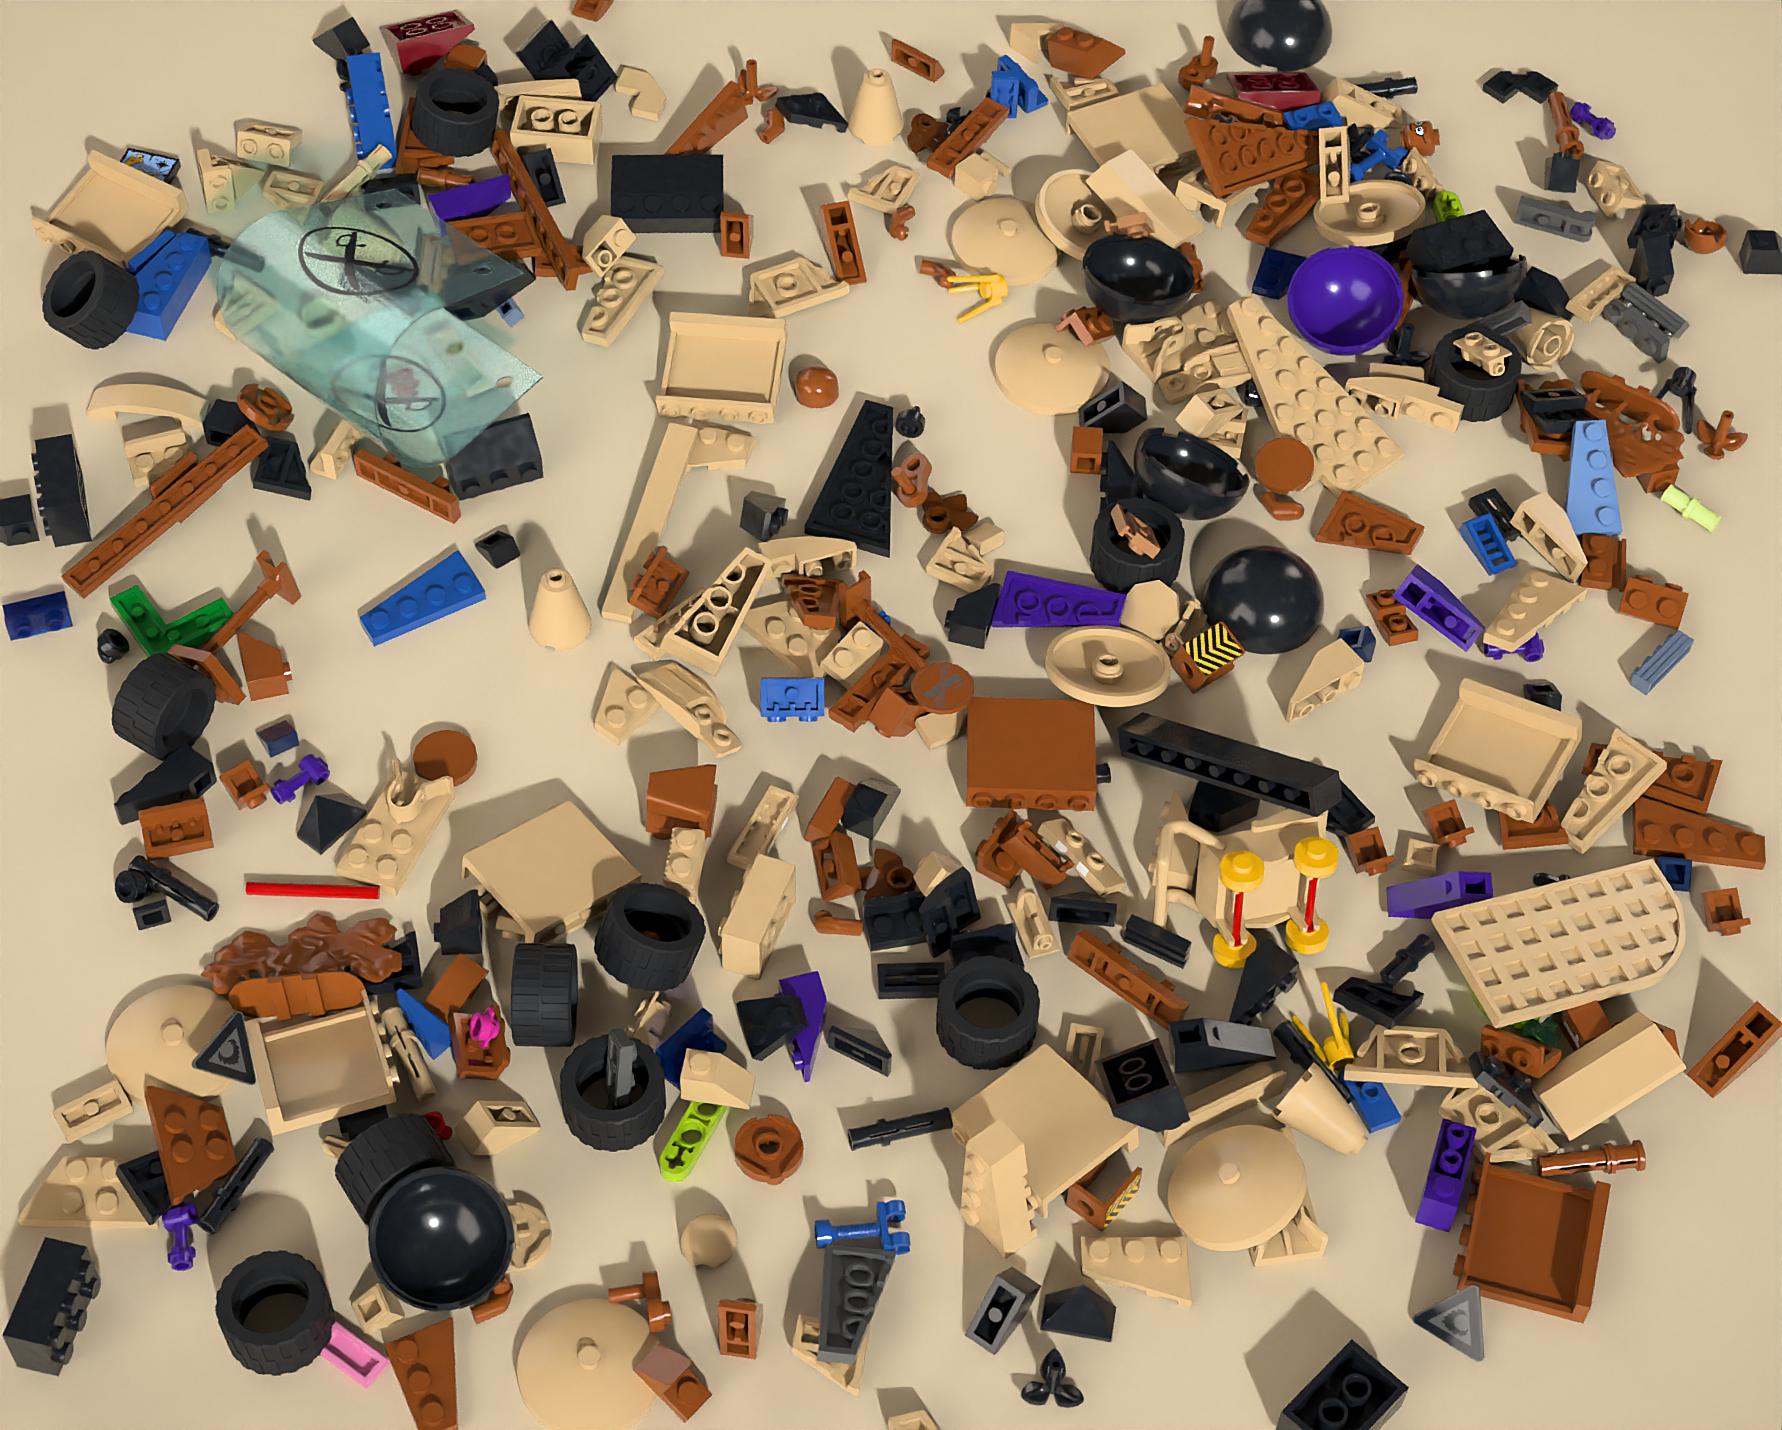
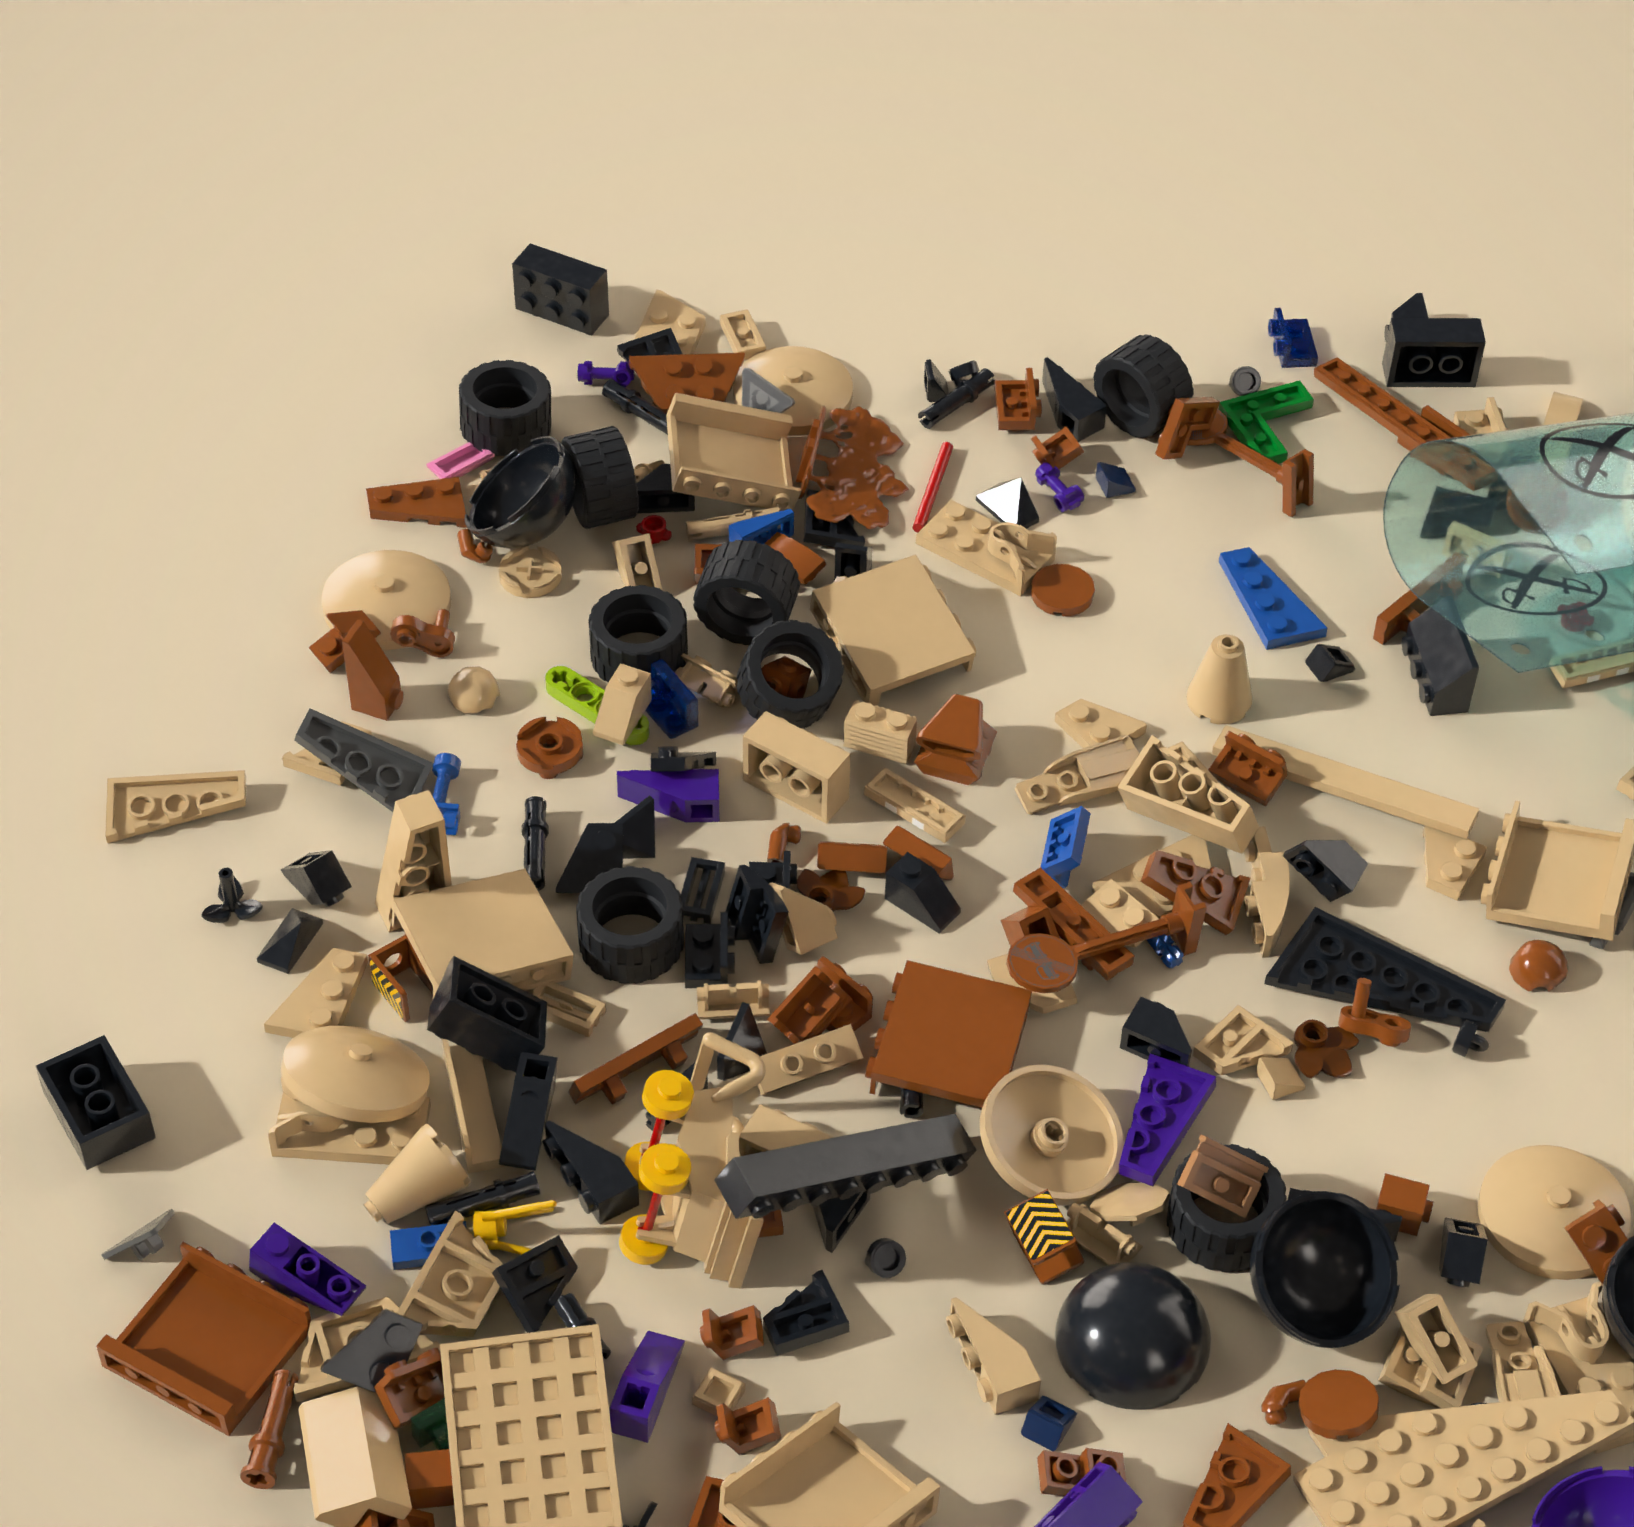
camera: 105 degrees right, 5 degrees down
(263, 668) = (1197, 471): dark orange slope -> none
(619, 1069) = (647, 623): dark grey hinge -> none
(917, 1061) = (595, 853): none -> black wing

